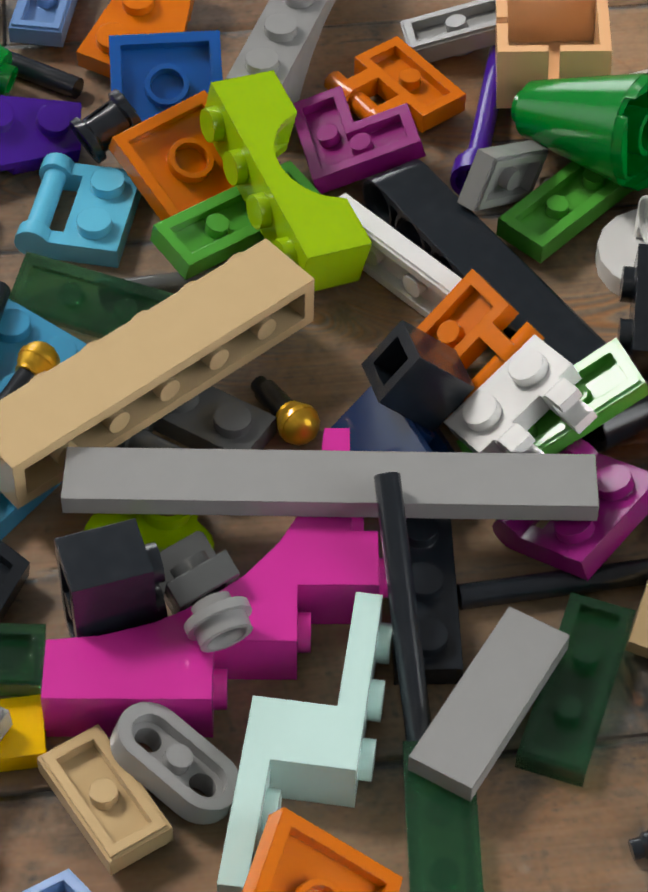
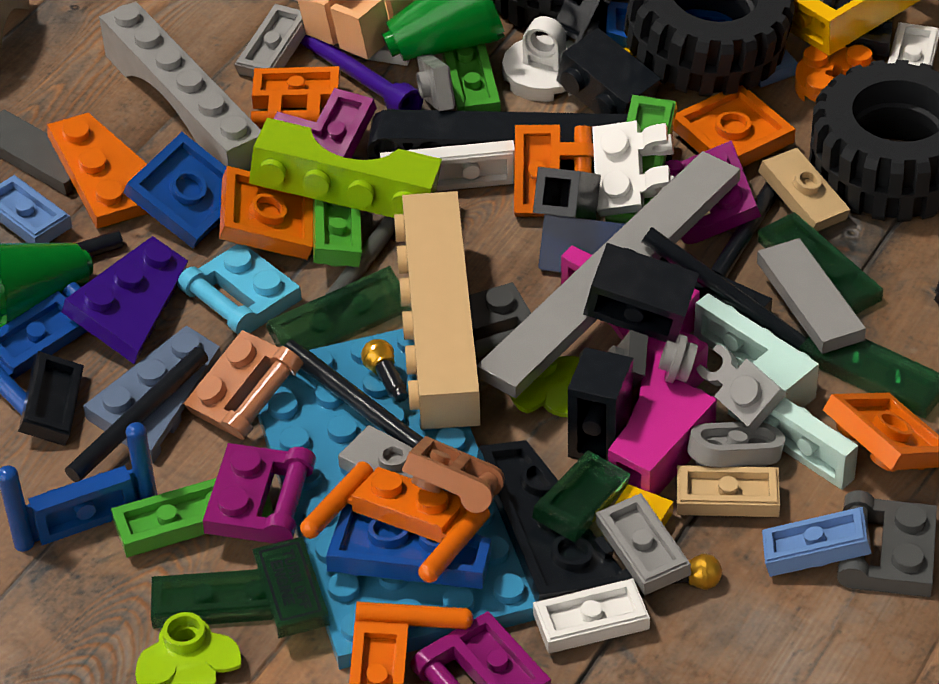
camera: 50 degrees left, 5 degrees down
(102, 124) = (197, 230): black bush -> none
(242, 718) = (744, 389): none -> light grey plate
(284, 523) = (640, 293): none -> black brick
(296, 421) = (525, 276): pearl gold piece -> none

